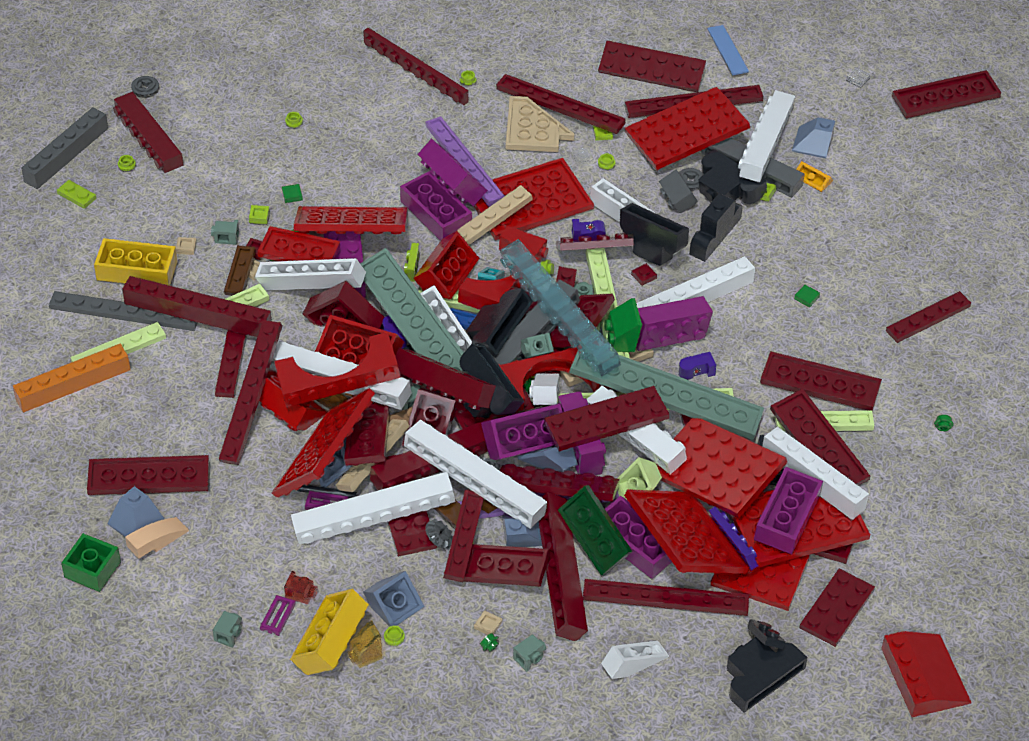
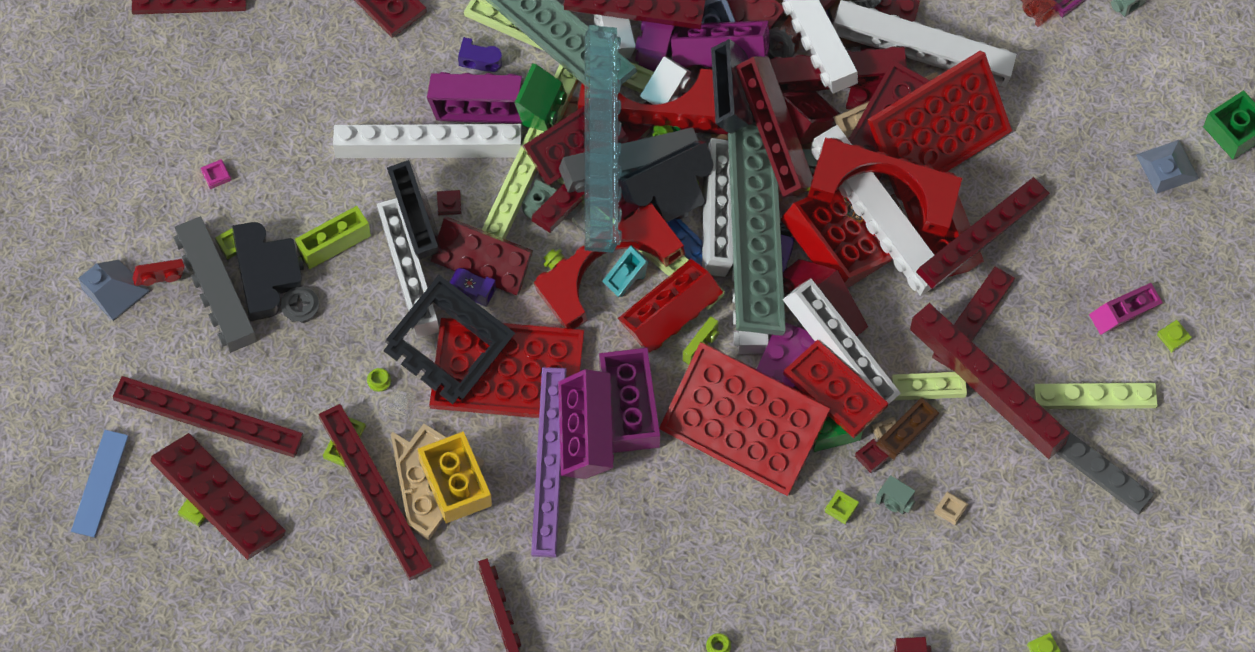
camera: 150 degrees left, 15 degrees up
(71, 377) = (1170, 368): orange brick -> none
(77, 407) = (1174, 336): none -> lime plate
(122, 402) = (1125, 308): none -> dark pink slope
(147, 261) = (1028, 493): yellow brick -> none
(148, 474) = (1133, 209): dark red plate -> none
(155, 536) = (1156, 130): light nougat slope -> none
(292, 193) = (783, 525): green tile -> none
(468, 77) = (454, 597): lime plate -> none
(495, 214) = (568, 349): tan plate -> none
(513, 115) = (454, 477): none -> yellow brick
(543, 344) = (648, 124): sand green brick -> none
(581, 198) = (466, 313): none -> black hinge
(678, 192) = (333, 282): dark grey brick -> none
(687, 128) = (255, 363): red plate -> none
(692, 217) = (333, 237): none -> lime brick
(715, 225) = (325, 202): black brick -> none
(766, 136) = (174, 295): white brick -> none
(794, 147) = (158, 272): none -> red plate
(807, 296) = (294, 88): green tile -> none
(811, 226) = (216, 174): none -> dark pink tile
(814, 177) = (157, 239): light orange slope -> none

